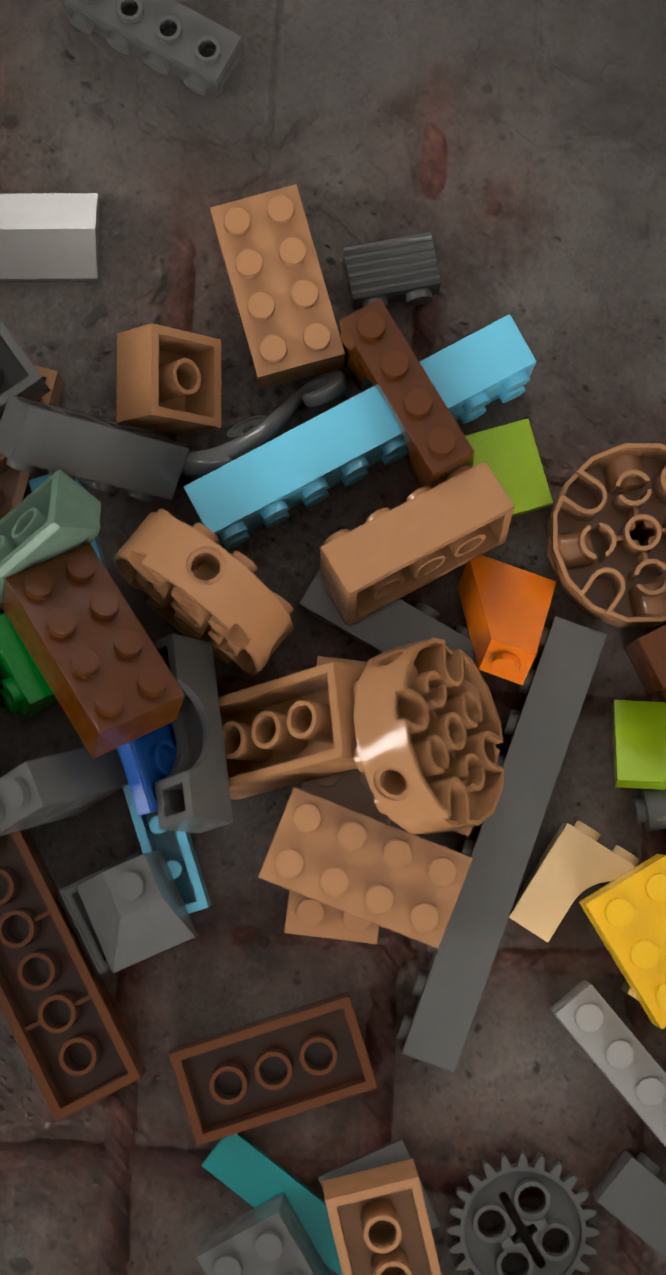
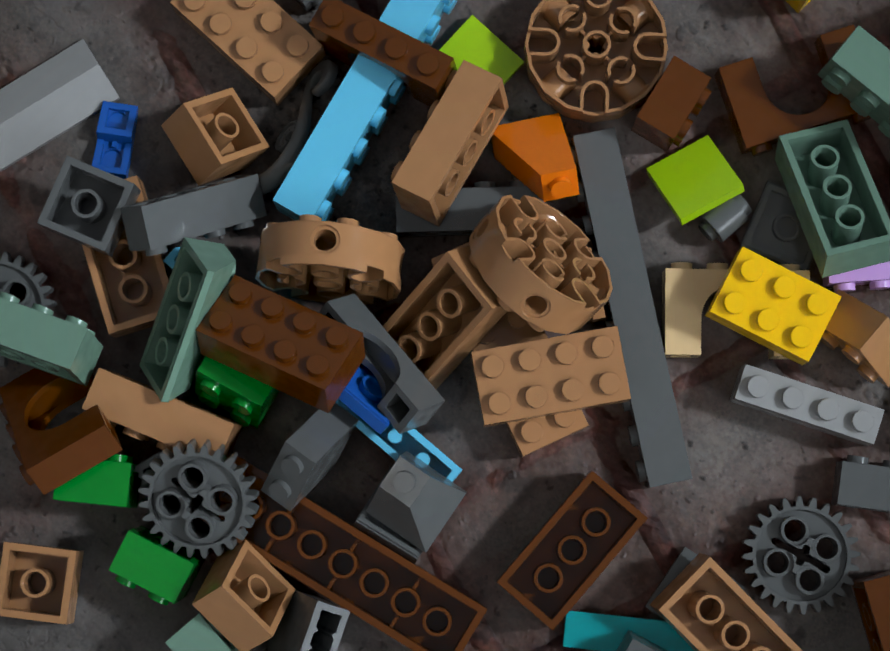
camera: 30 degrees left, 0 degrees up
(64, 321) = (115, 138): none -> blue slope

